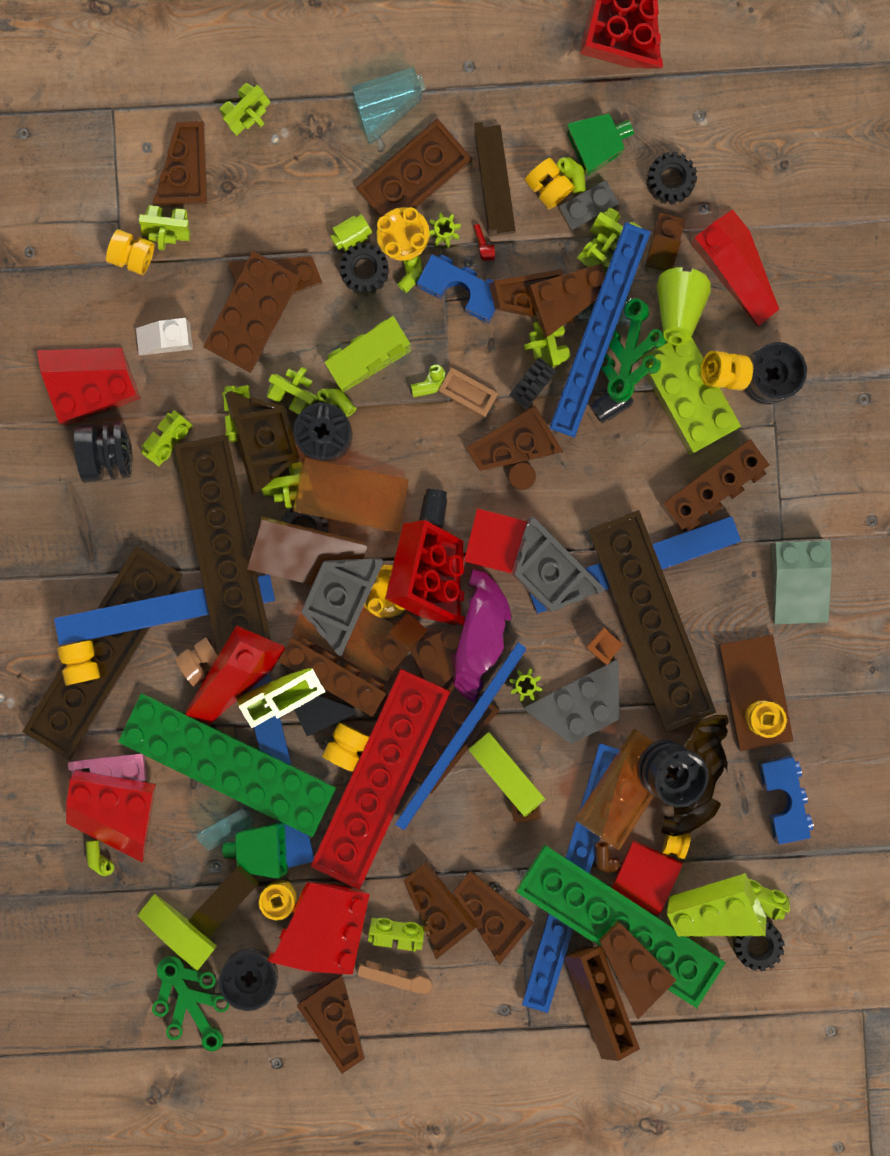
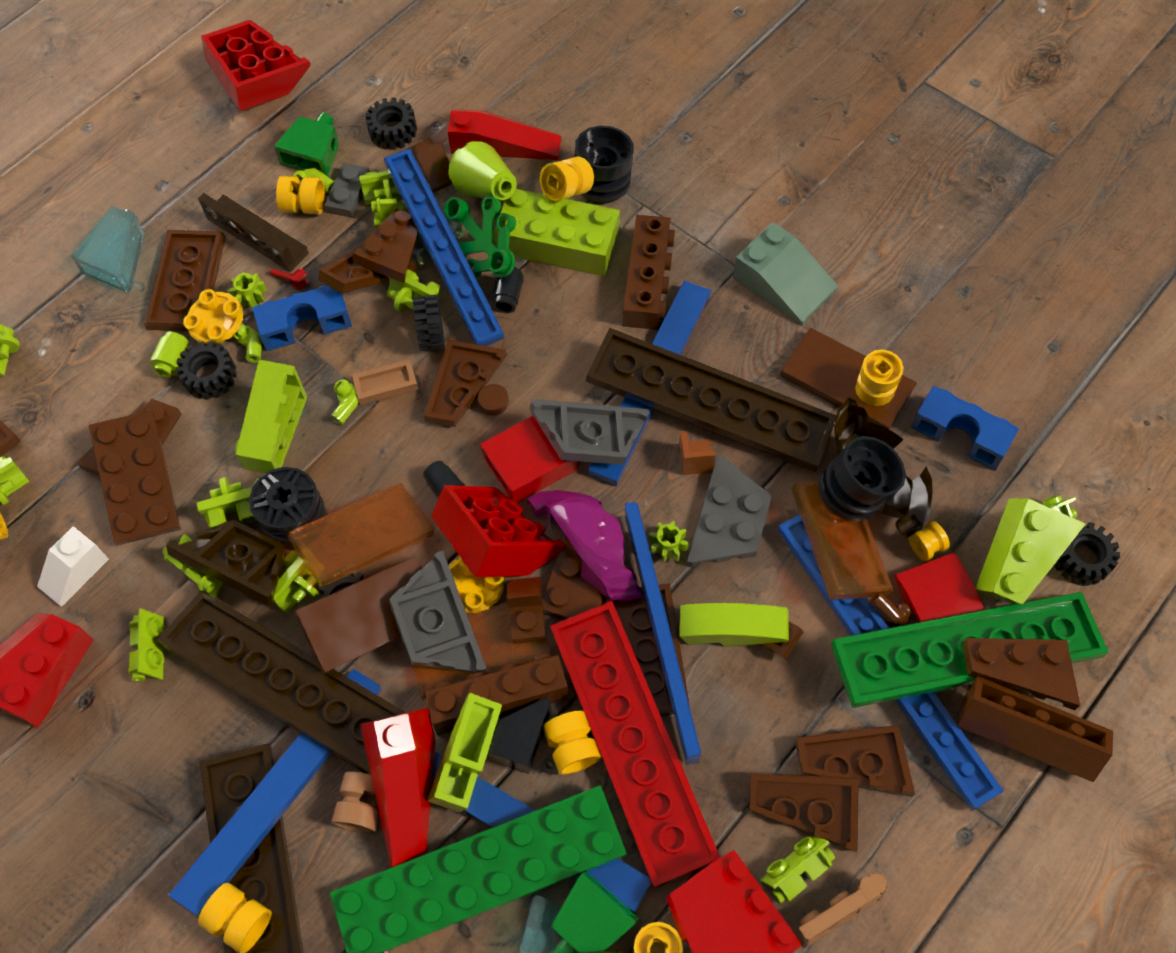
camera: 45 degrees left, 25 degrees down
(107, 451) = (90, 704): black wheel -> none

